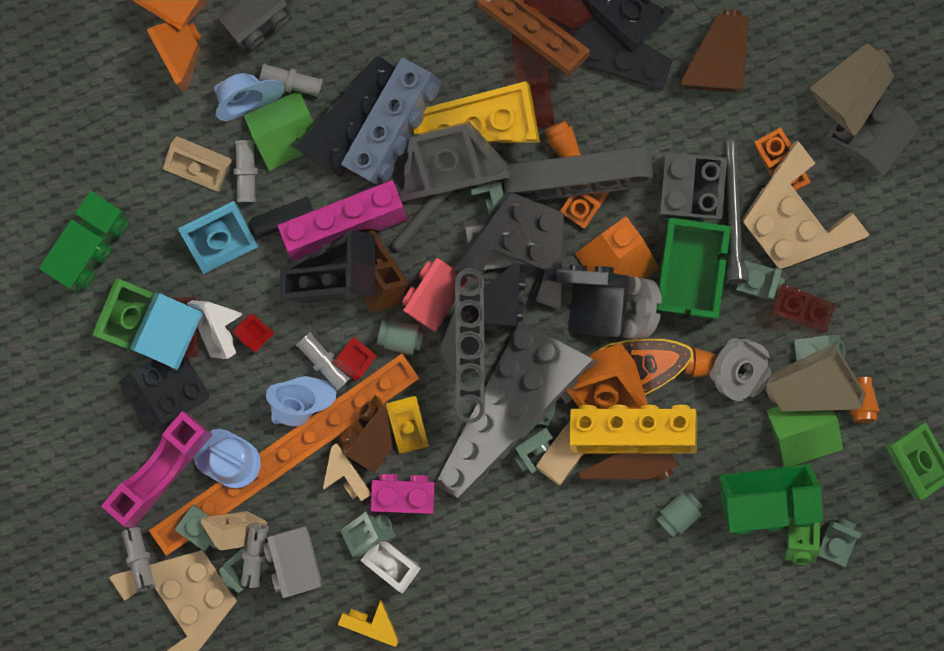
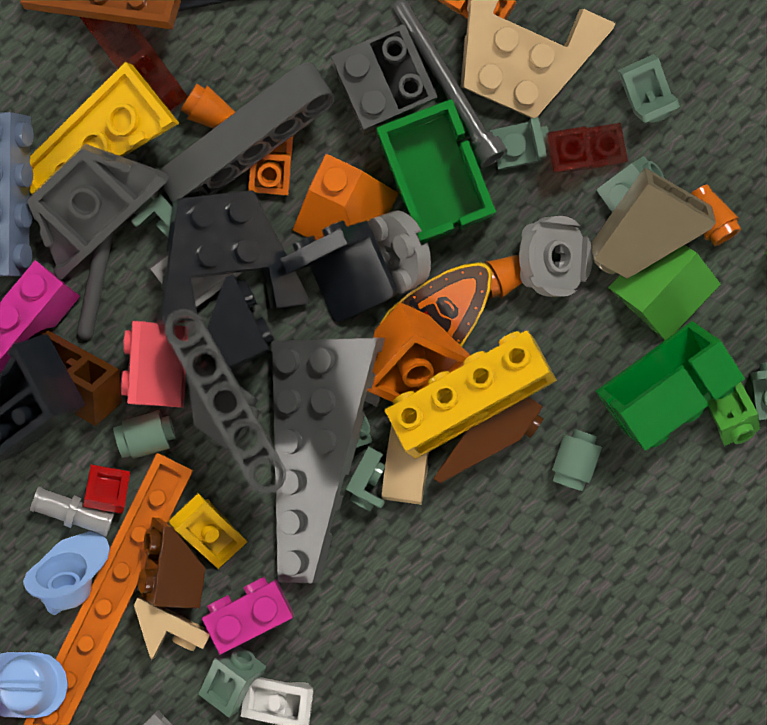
camera: 30 degrees left, 0 degrees up
(866, 292) = (648, 90): none -> sand green bracket

